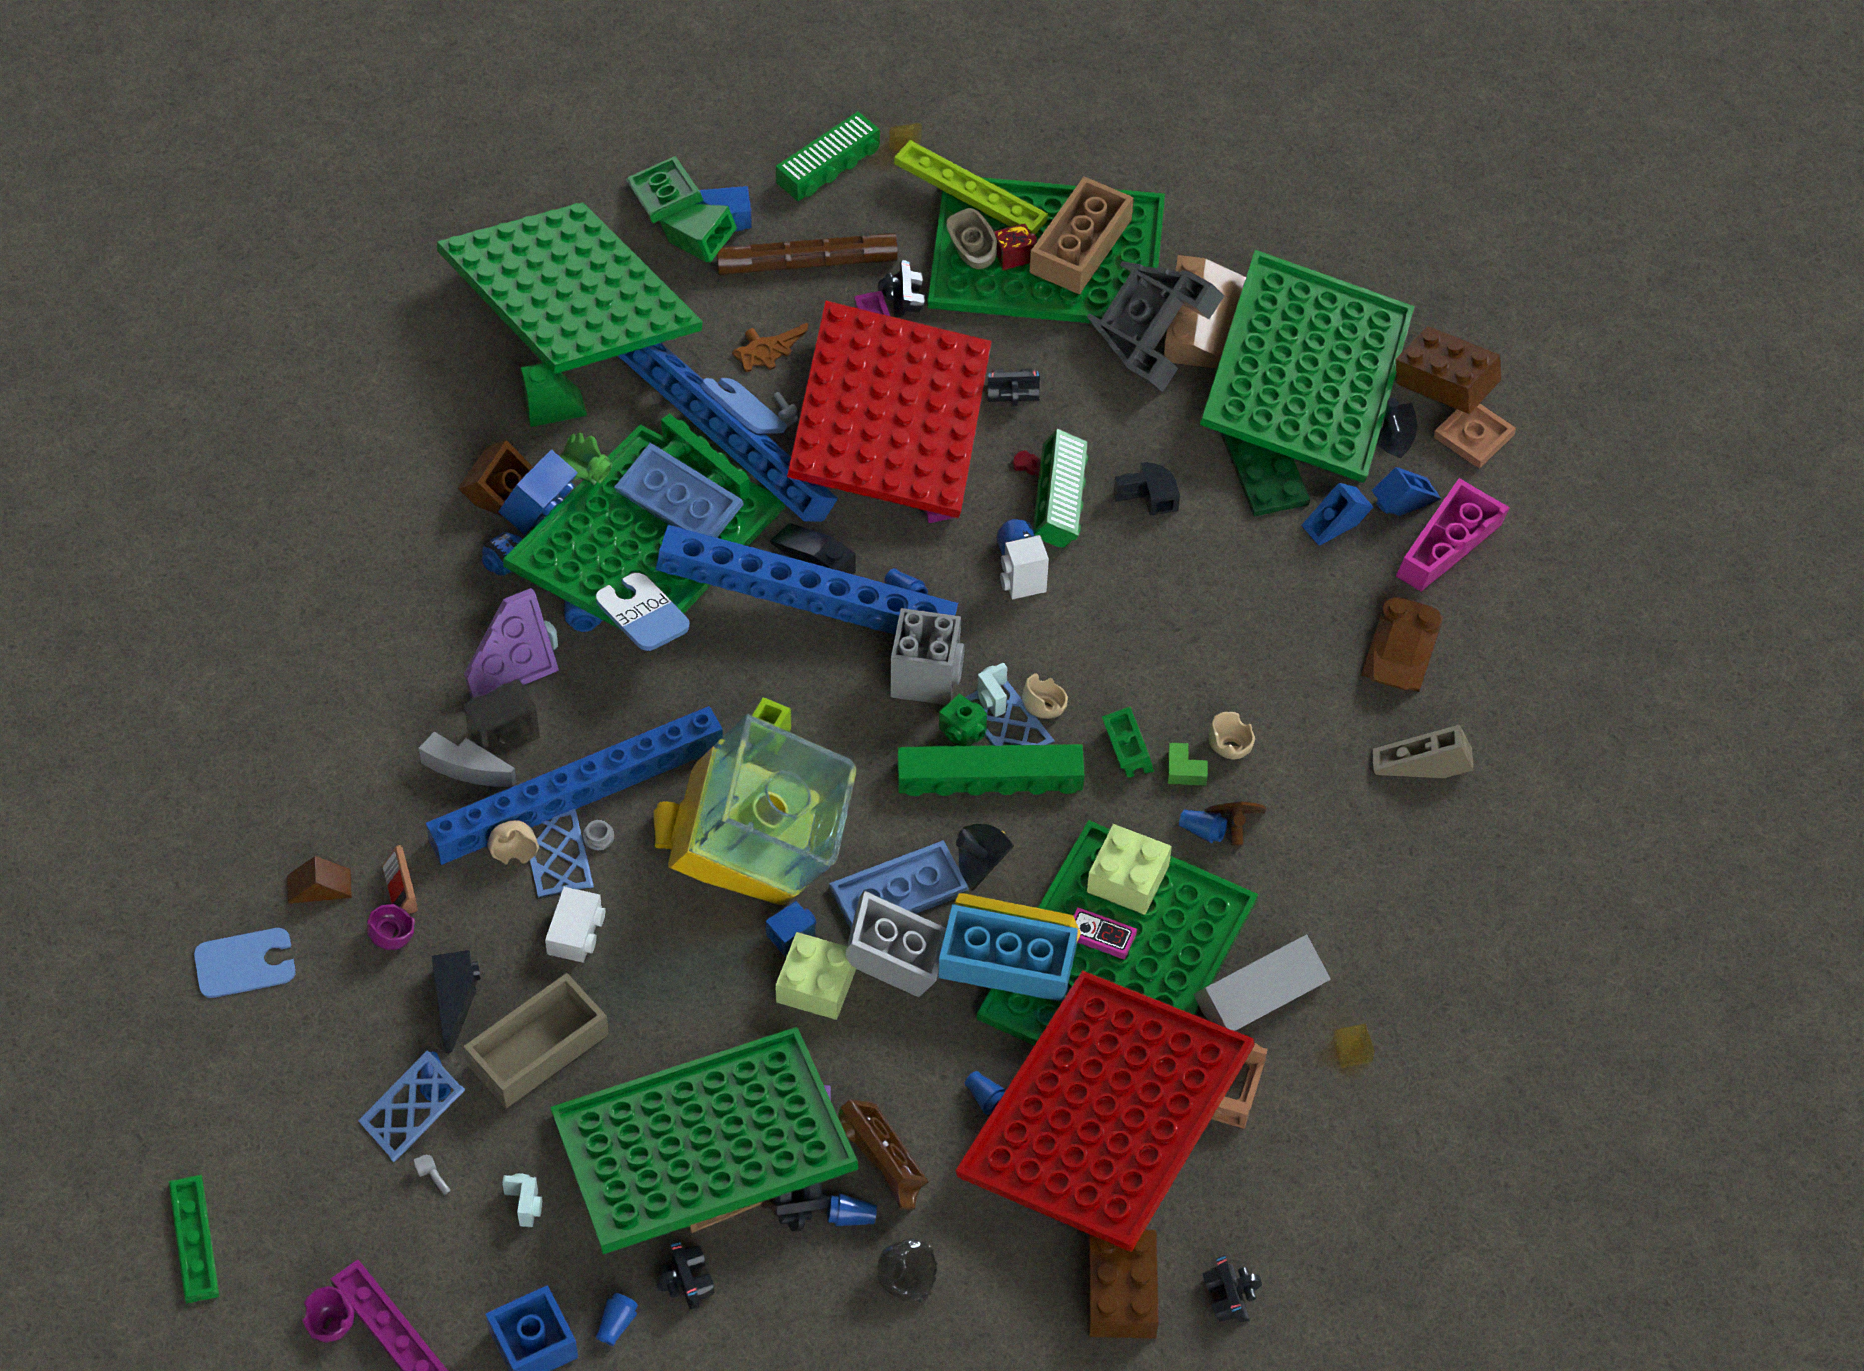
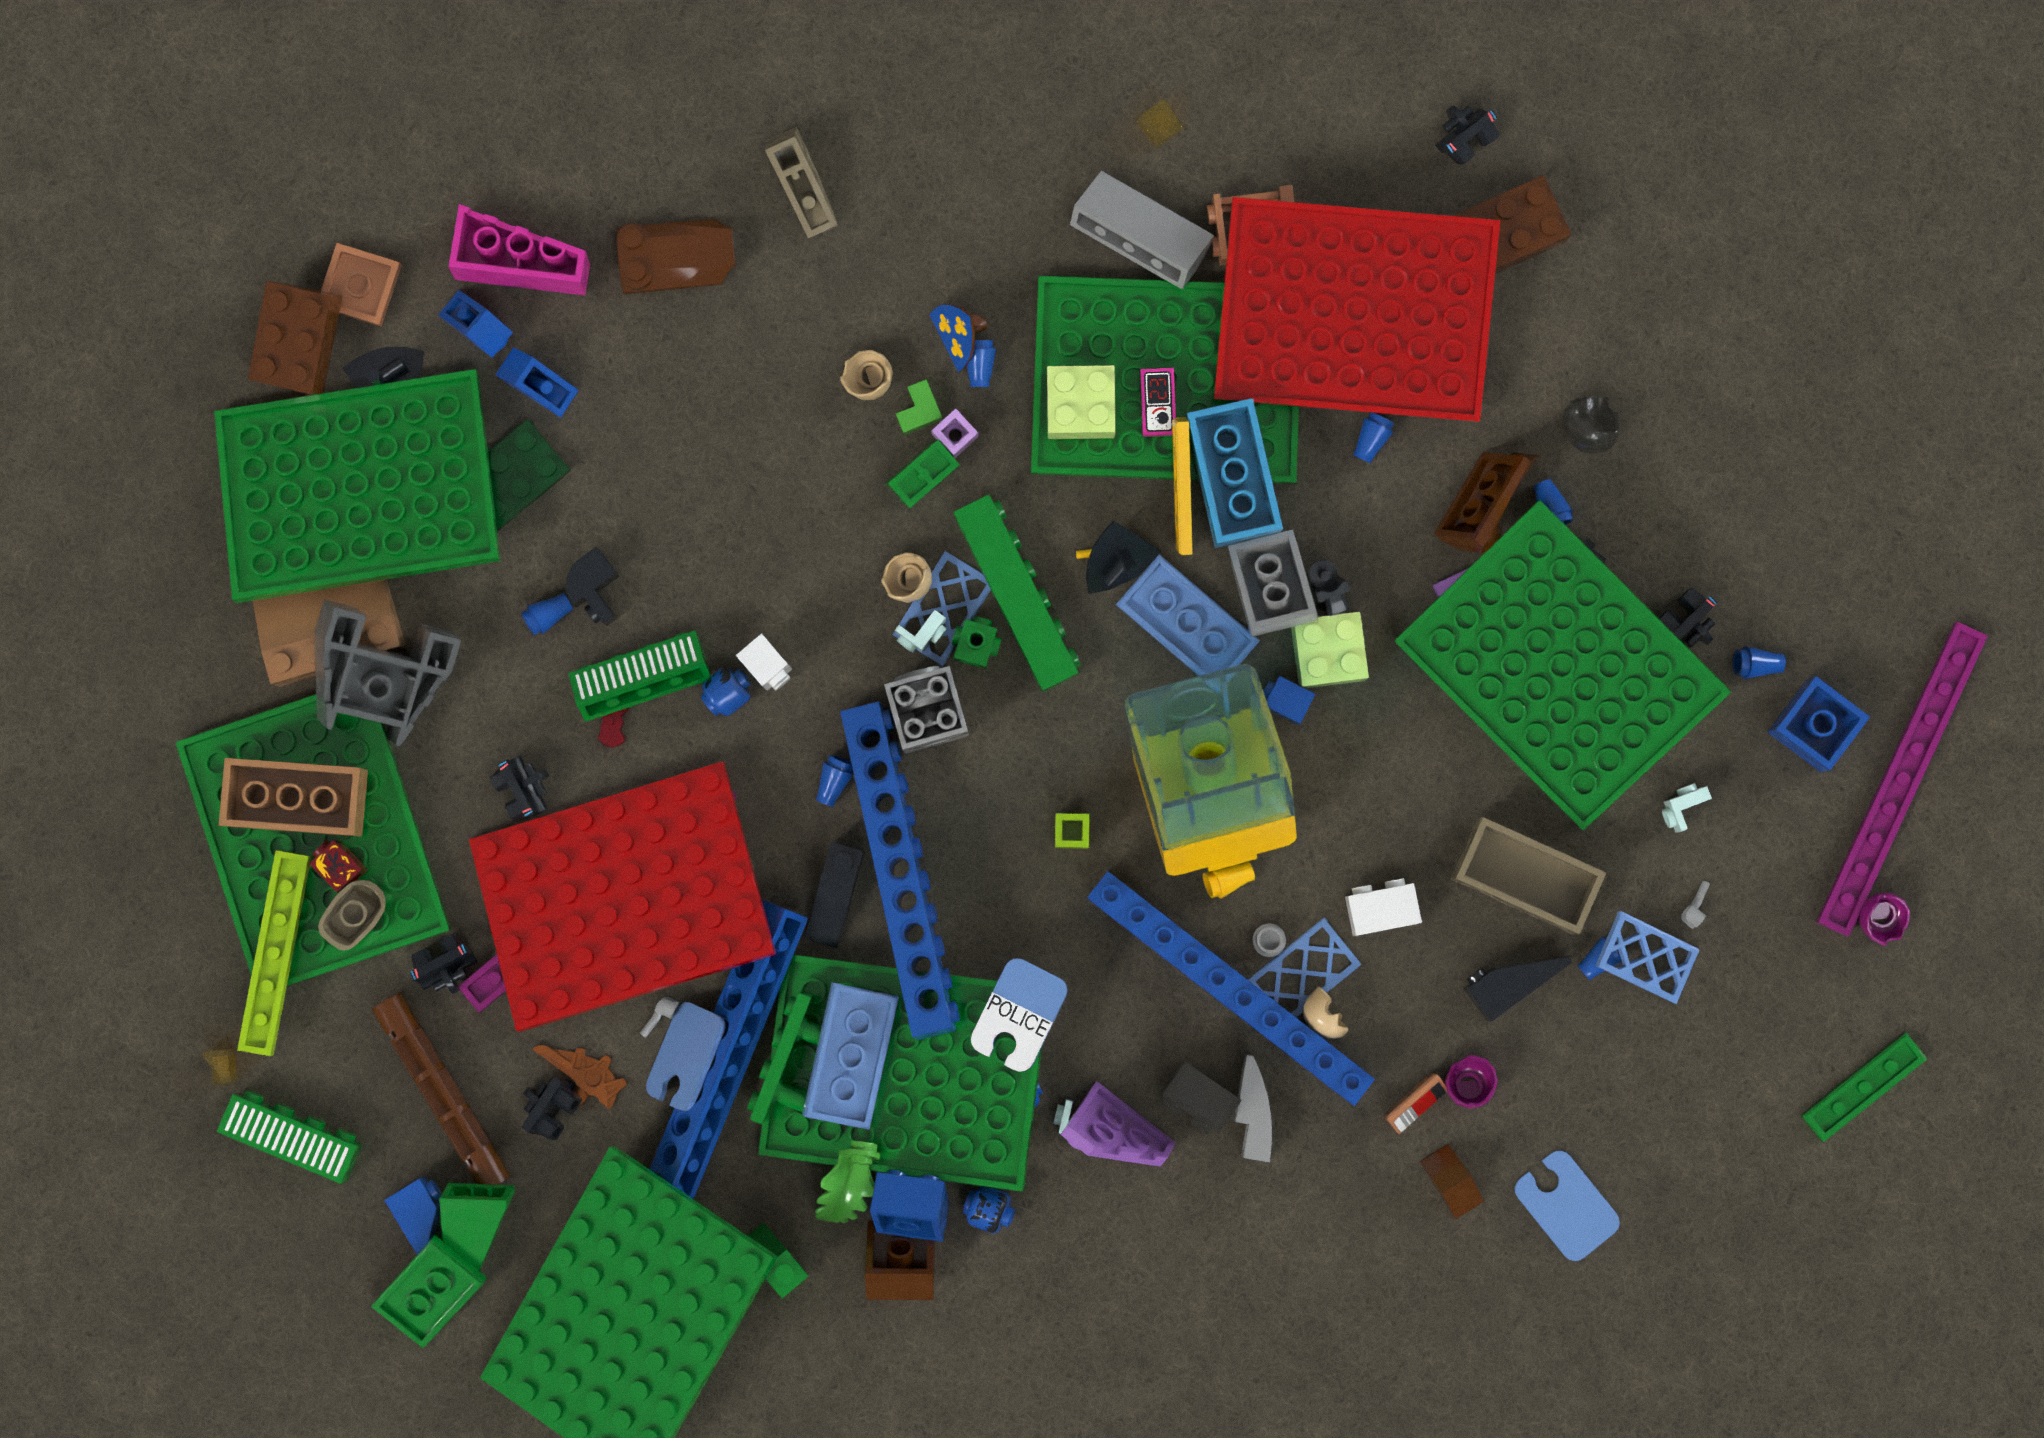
camera: 115 degrees left, 30 degrees up
(758, 312) = (546, 1103): none -> black hips
(869, 992) = (1328, 587): none -> black hips
(1143, 448) = (546, 613): none -> blue cone
(1149, 778) = (952, 422): none -> lavender plate

